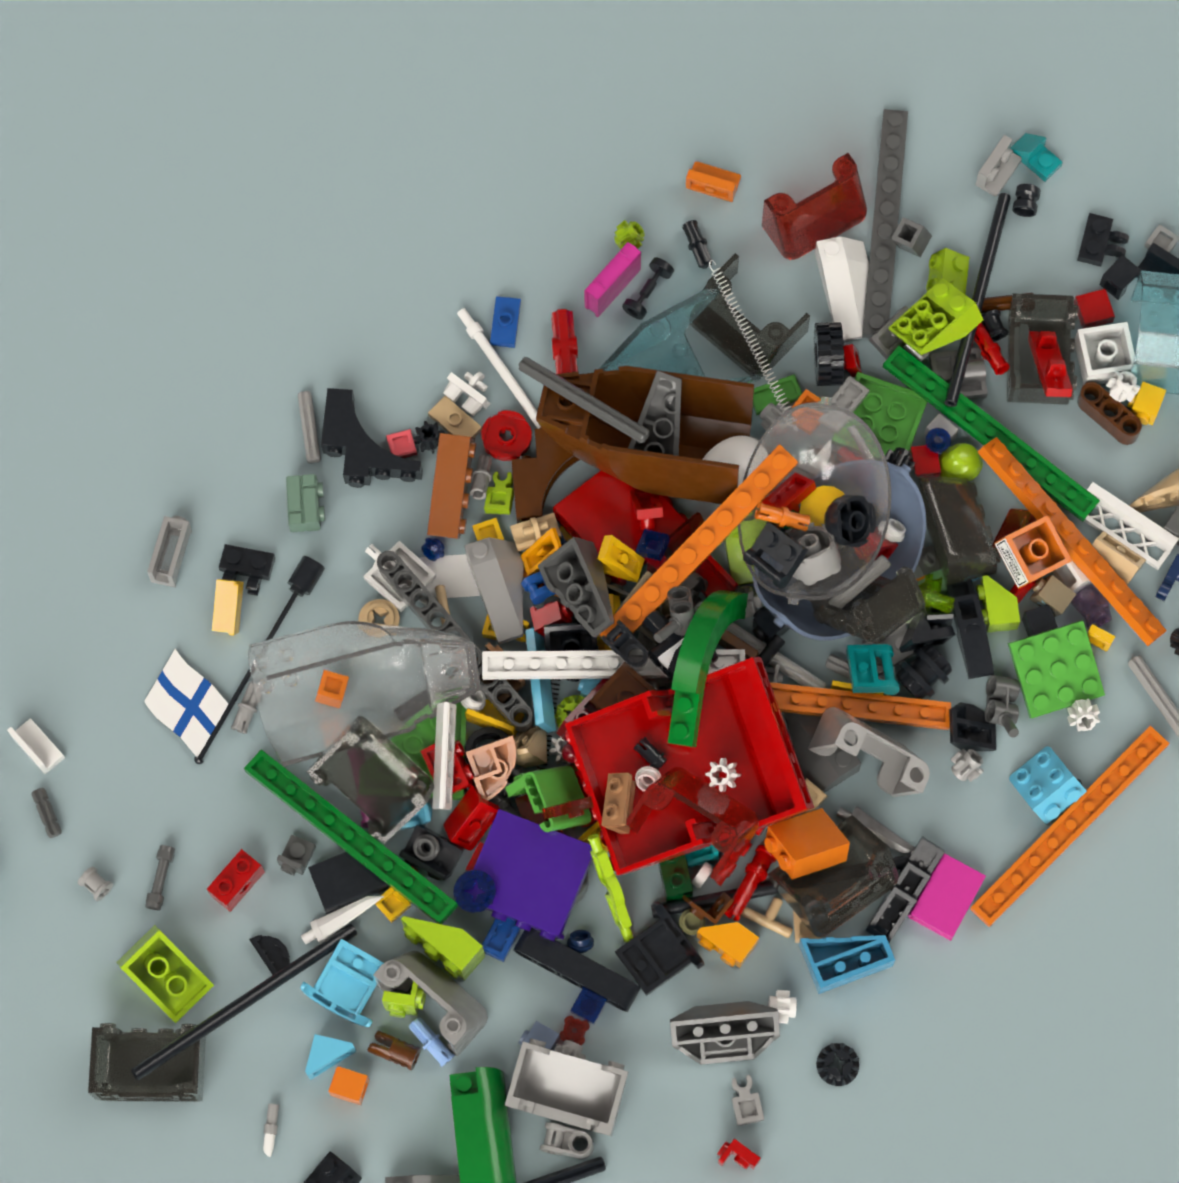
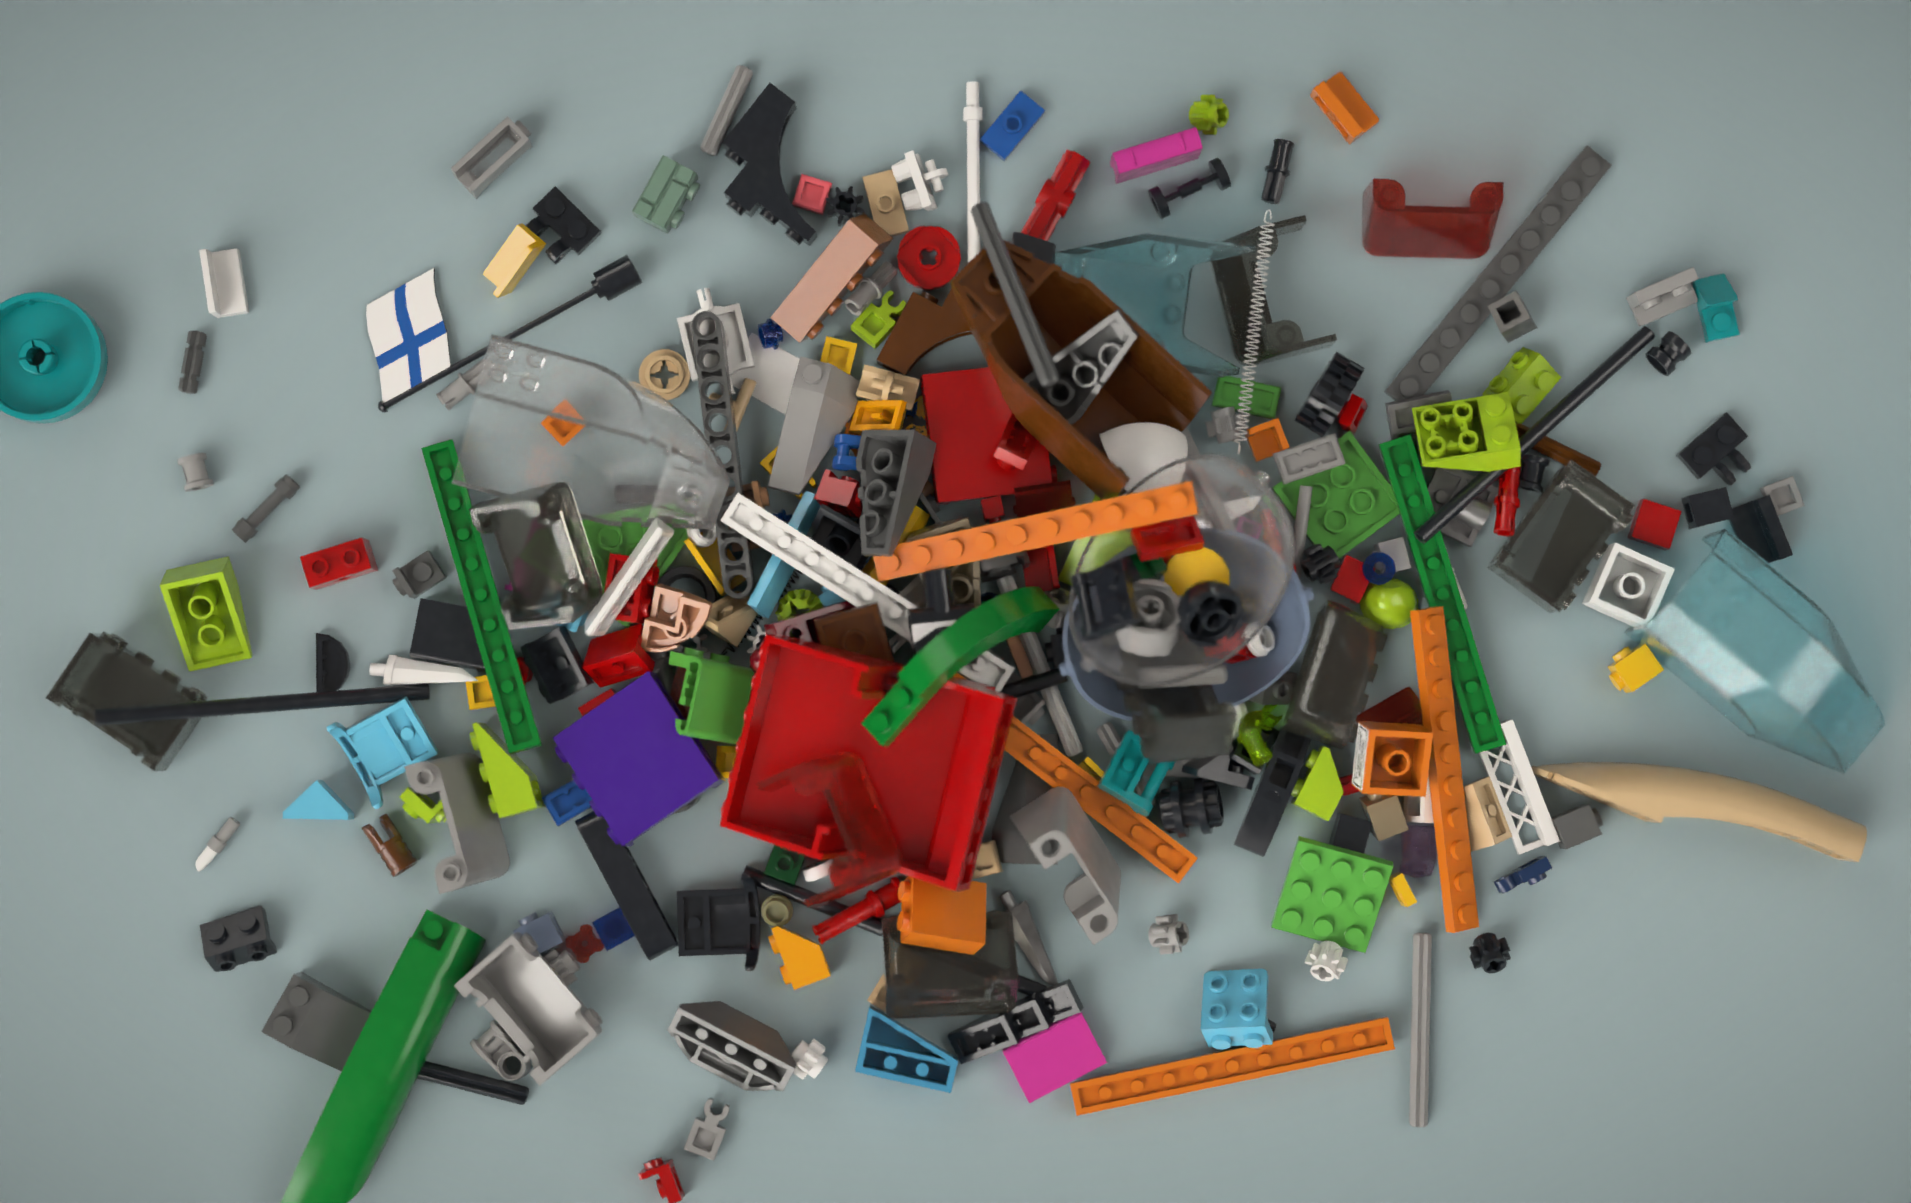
camera: 25 degrees right, 15 degrees up
(349, 1085) = (320, 853): orange panel -> none
(419, 850) = (545, 660): dark grey plate -> none
(431, 1041) = (430, 855): light blue axle -> none
(466, 882) = (552, 743): clear blue gear -> none
(572, 808) = (718, 726): clear red plate -> none
(580, 941) = (649, 857): dark blue plate -> none
(614, 894) = (709, 834): lime piece -> none
(618, 802) = (768, 752): medium nougat bracket -> none
(619, 559) = (950, 483): yellow slope -> none
(625, 644) = (888, 586): black piece -> none
(642, 774) = (817, 745): white plate -> none
(651, 755) = (837, 721): black pin -> none
(652, 544) = (996, 488): clear blue plate -> none
(681, 613) = (967, 592): dark grey beam -> none
(713, 915) = (795, 918): reddish brown bracket -> none
(723, 767) = (901, 796): white gear -> none
(768, 920) = (856, 958): tan piece -> none
(782, 517) = (1139, 563): orange pin -> none
(832, 1075) = (841, 1146): black gear -> none
(844, 279) = (1409, 315): white wedge -> none
(970, 728) = (1202, 896): black slope -> none
(998, 709) = (1243, 895): dark grey beam -> none
(1050, 364) = (1556, 563): red hinge -> none
(1115, 424) = (1598, 664): reddish brown beam -> none
(1123, 386) = (1619, 638): white gear -> none

